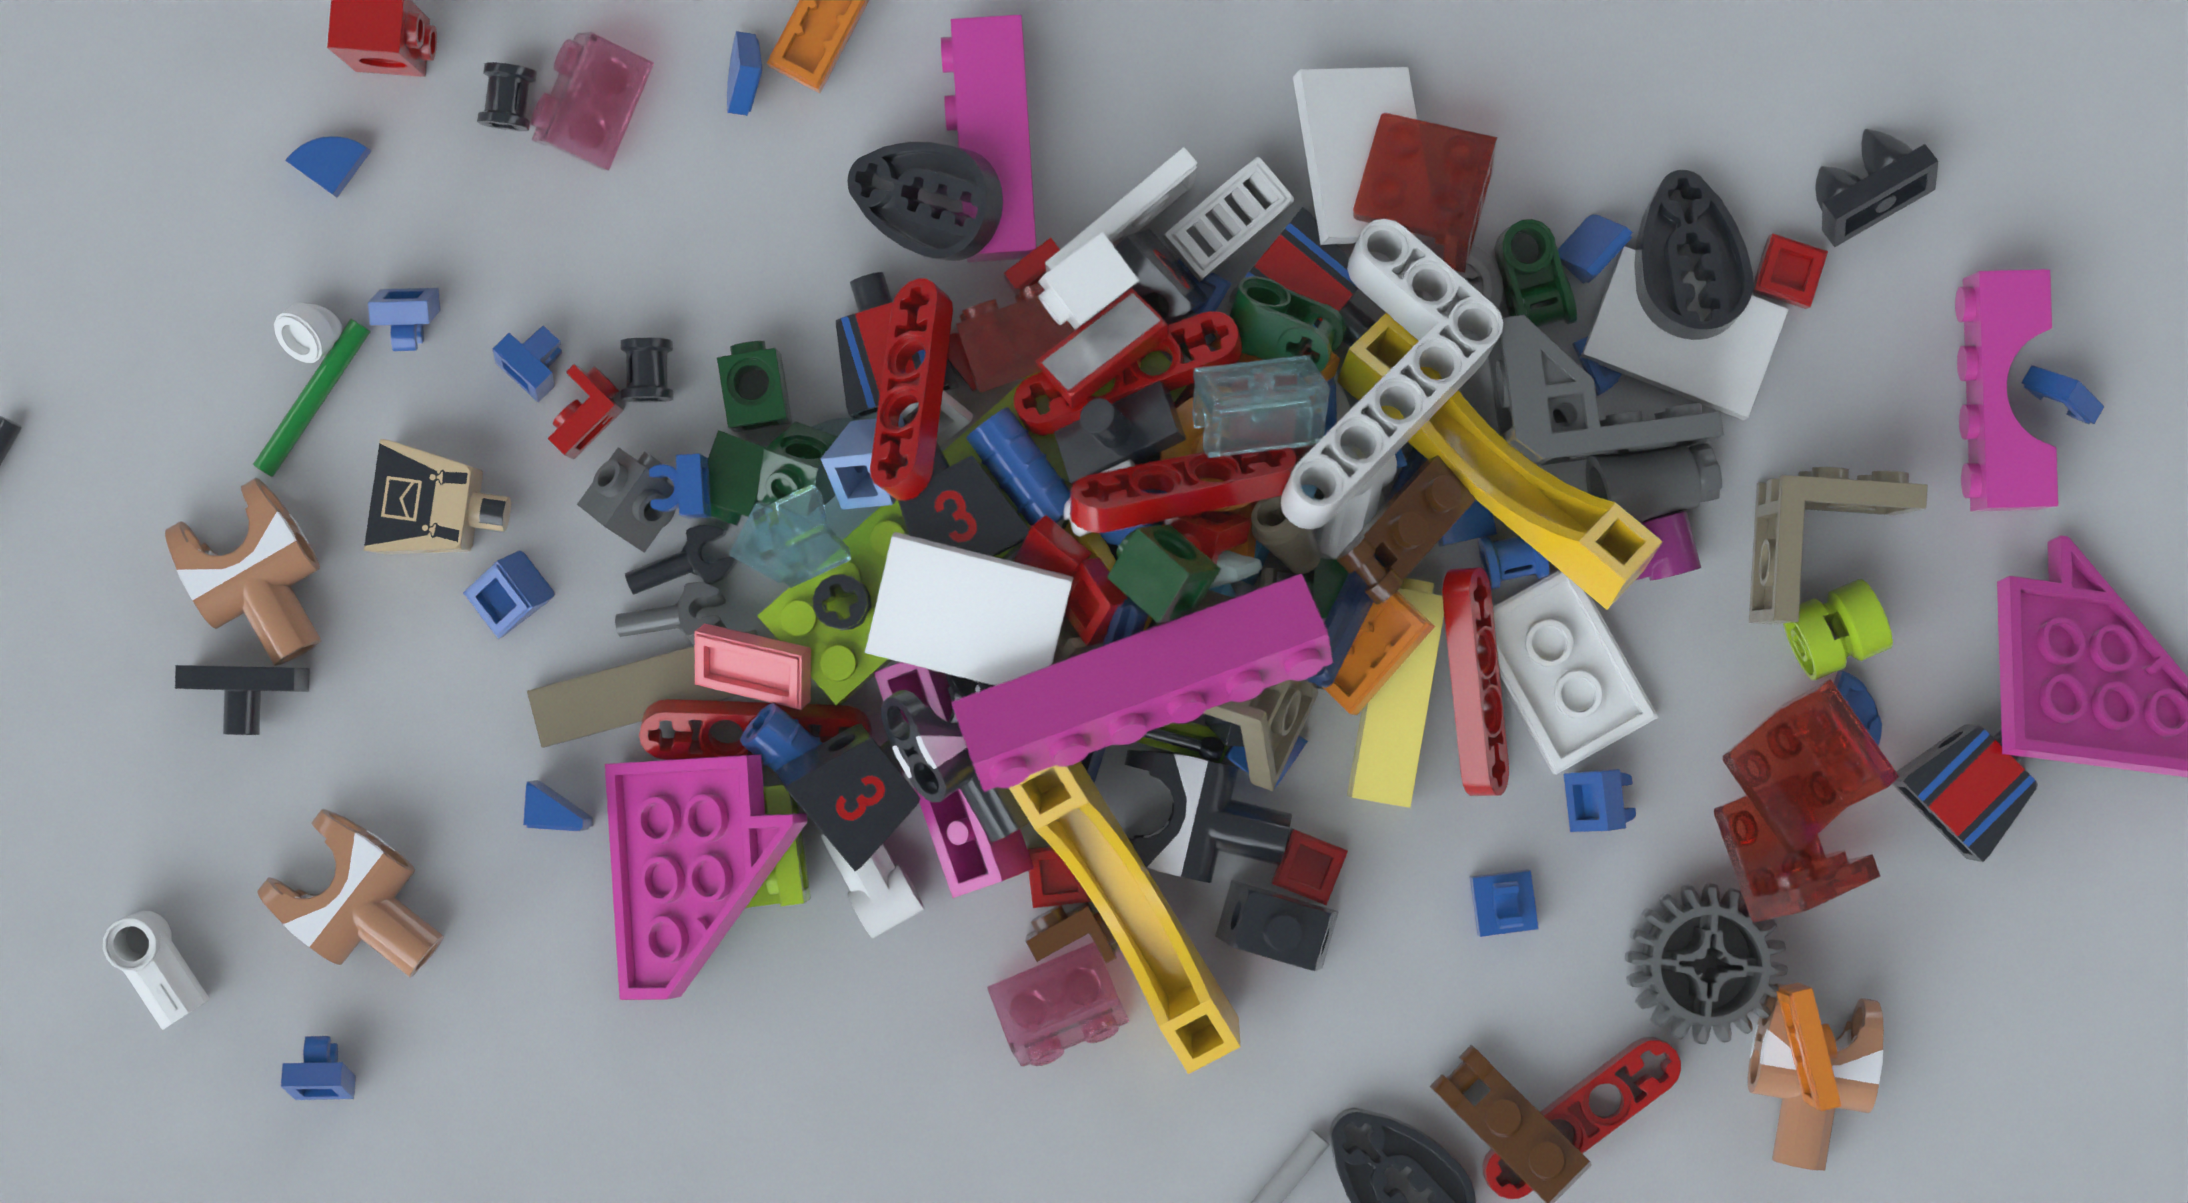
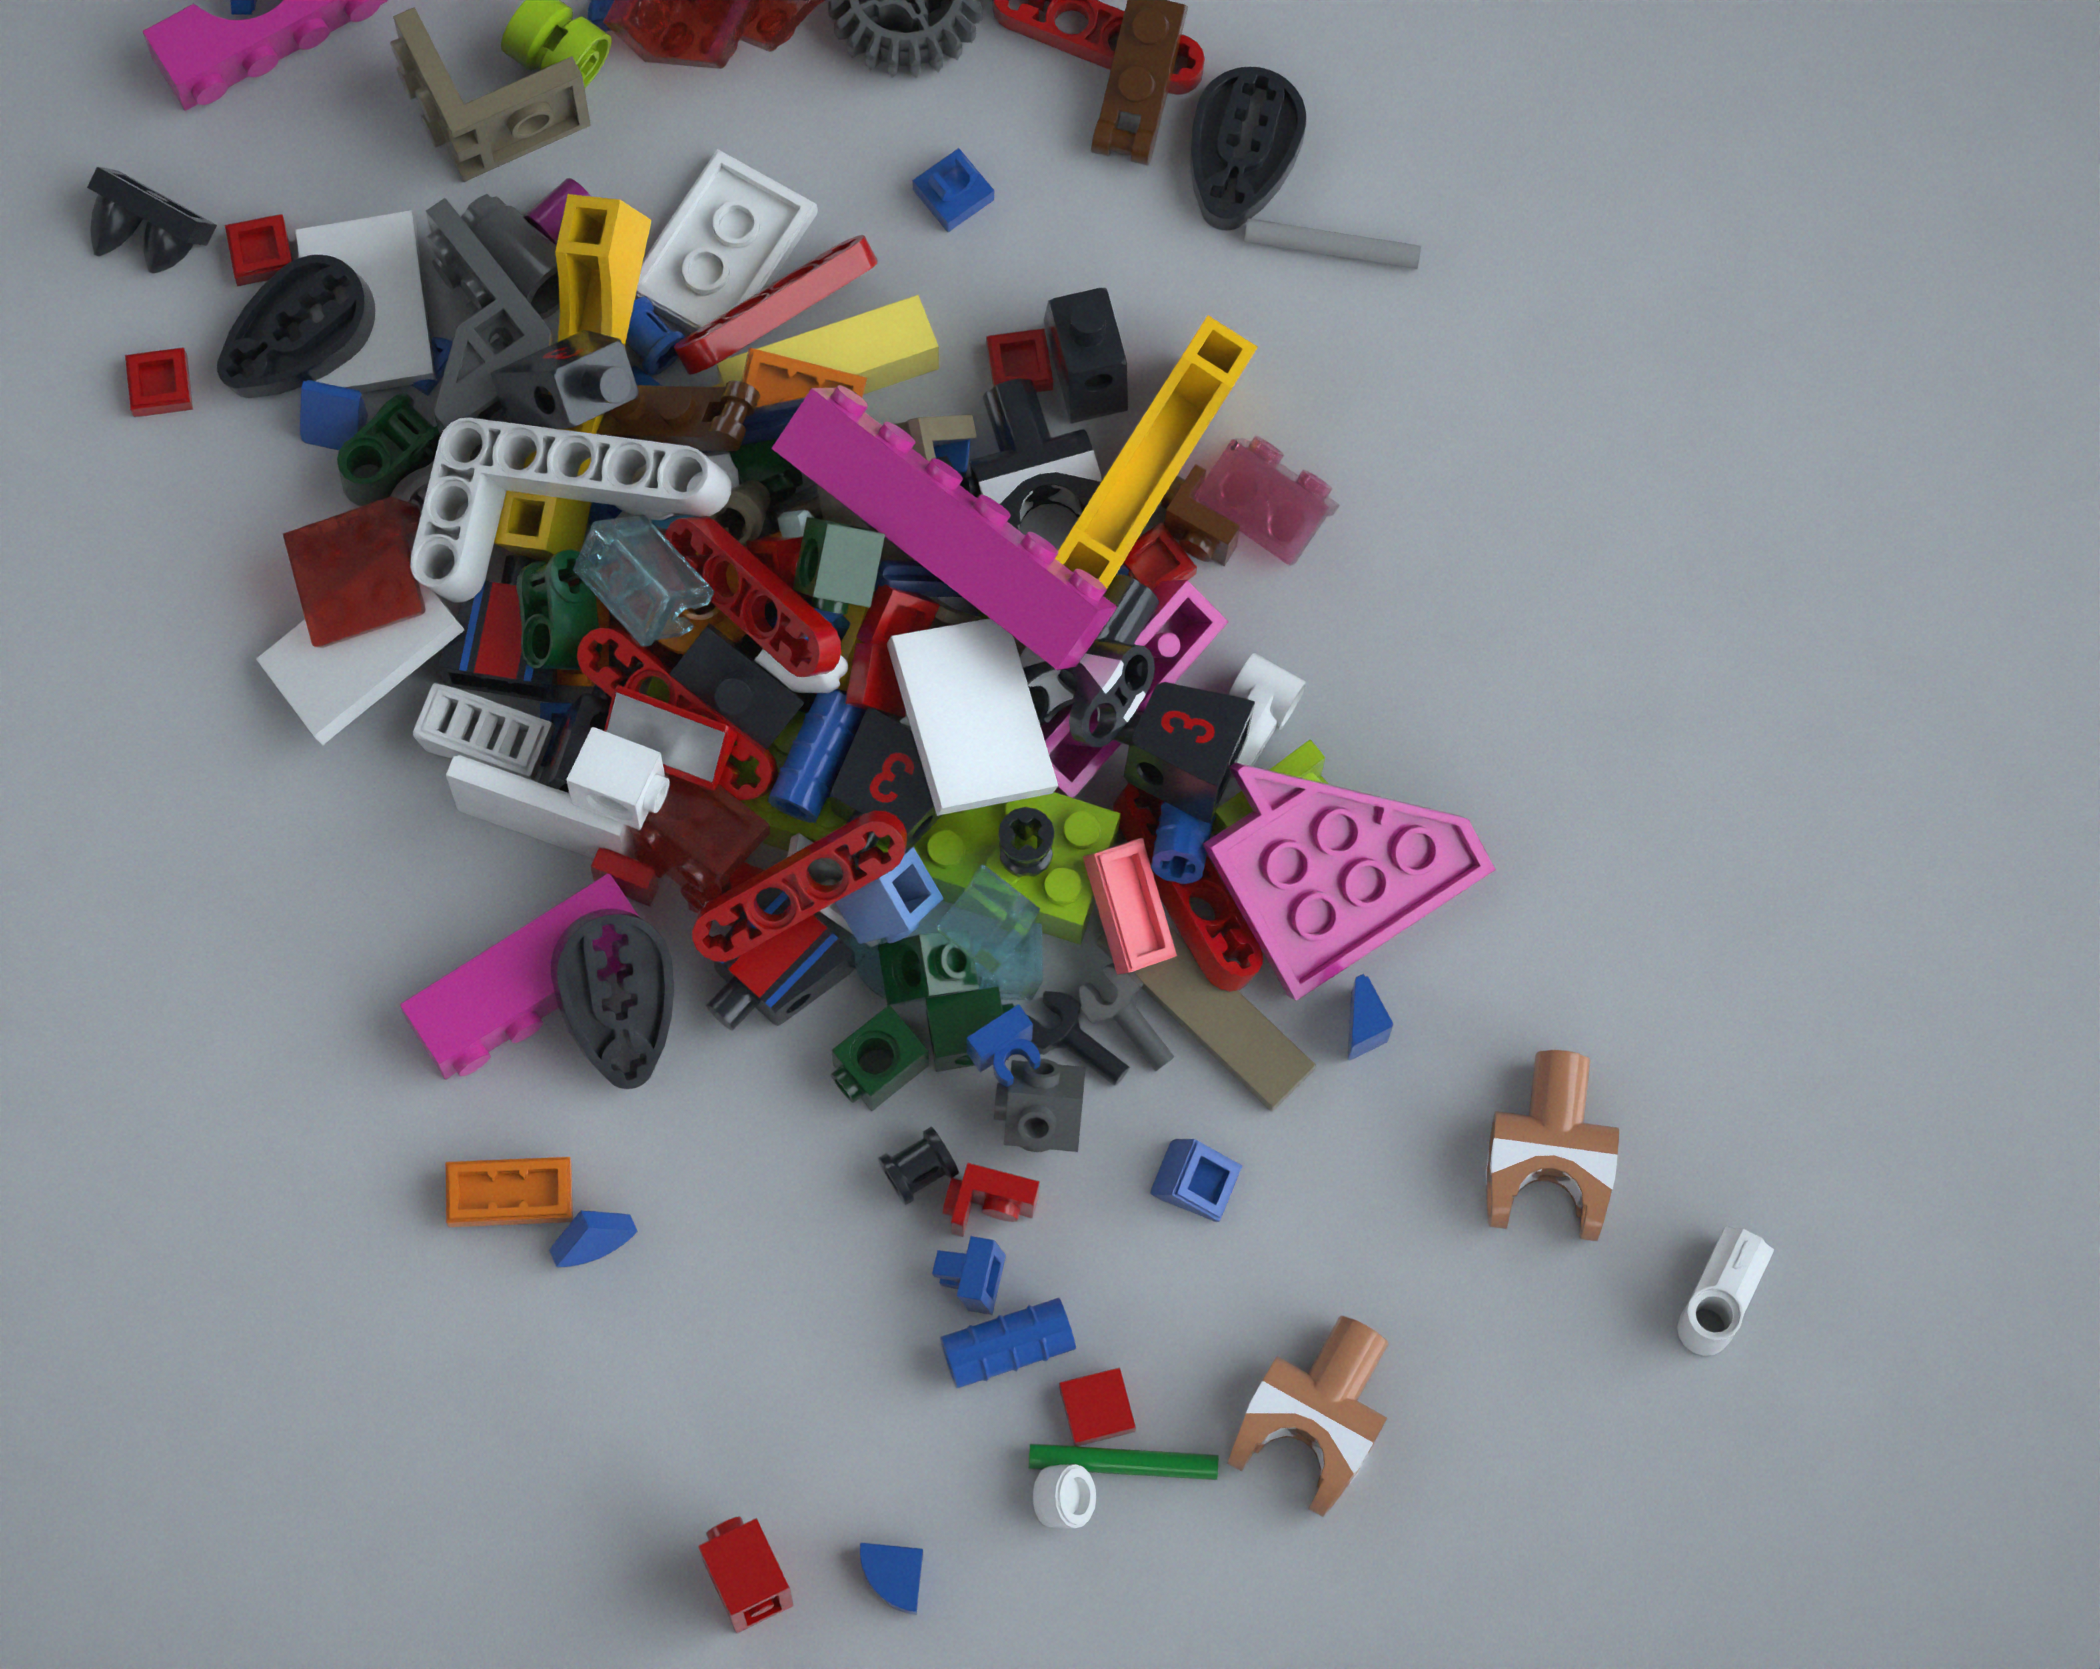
camera: 125 degrees left, 15 degrees down
(242, 690) = (1425, 1360): black tile -> none
(320, 1074) = (1725, 1090): blue tile -> none
(368, 402) = (1097, 1407): none -> red tile
(406, 313) = (993, 1415): tile -> none
(428, 503) = (1157, 1289): torso -> none
(457, 357) = (1007, 1343): none -> blue axle
(506, 96) = (738, 1438): black bush -> none
(590, 99) = (696, 1362): clear pink bracket -> none
(1478, 440) = (582, 373): none -> black torso
(1597, 800) = (820, 158): blue tile -> none
(1713, 120) = (159, 382): none -> red tile

